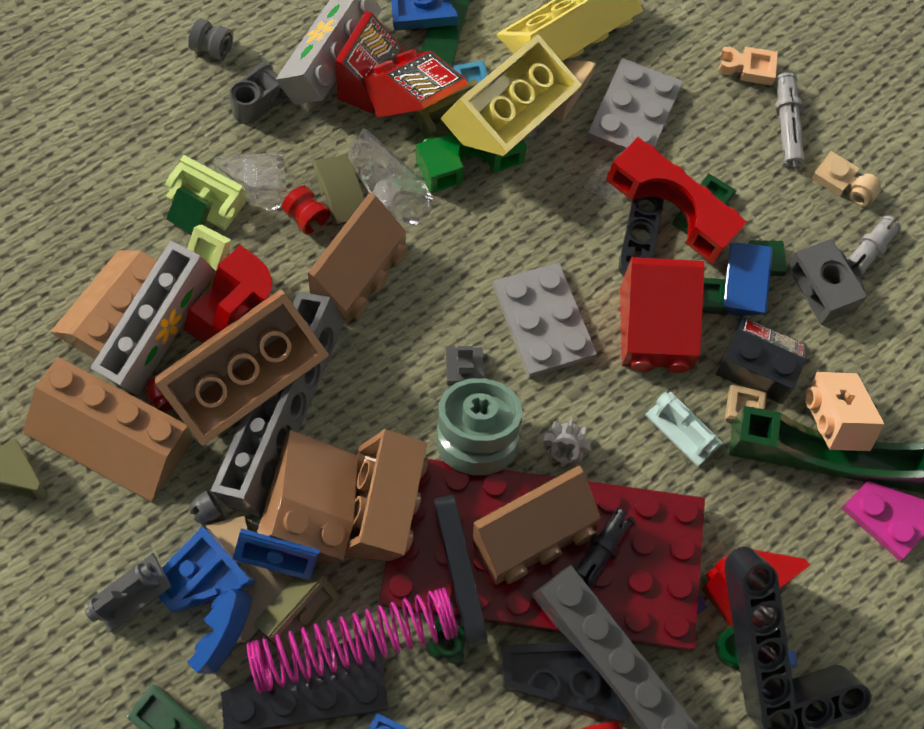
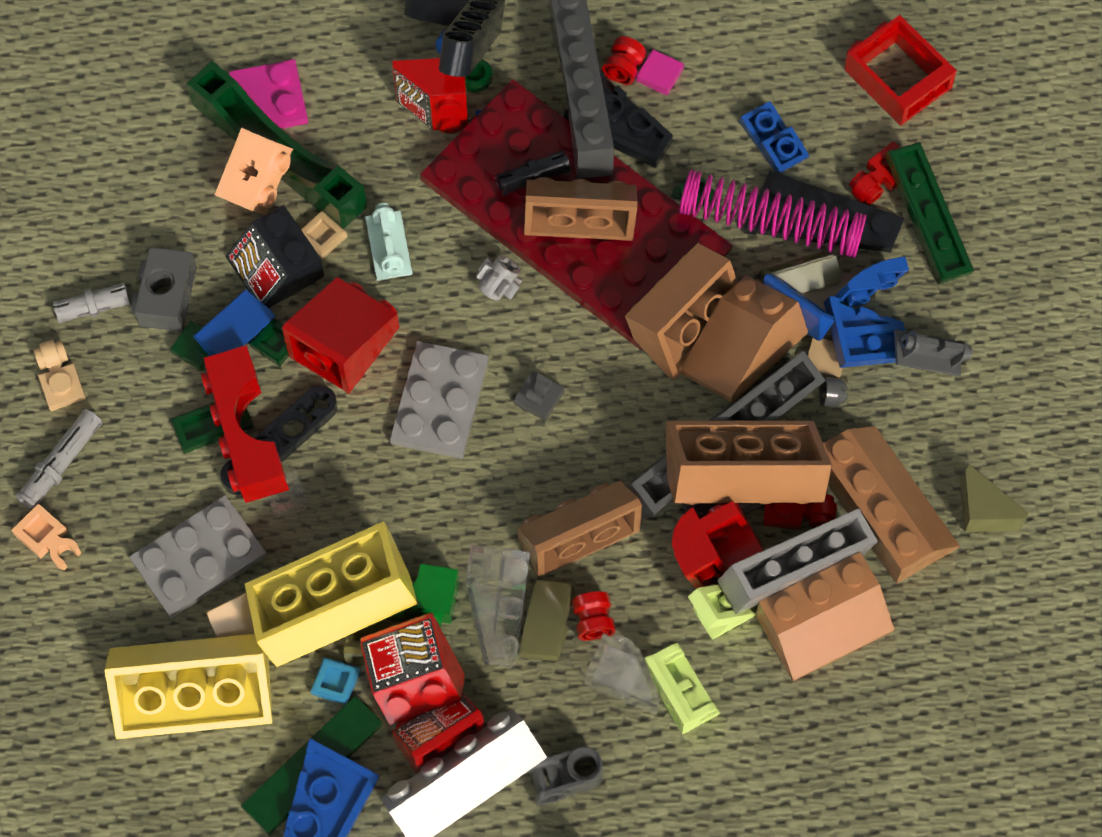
camera: 140 degrees left, 0 degrees up
(188, 210) = (706, 676): dark green tile -> none
(460, 571) = (657, 218): black beam -> none
(478, 426) = (550, 307): sand green wheel -> none

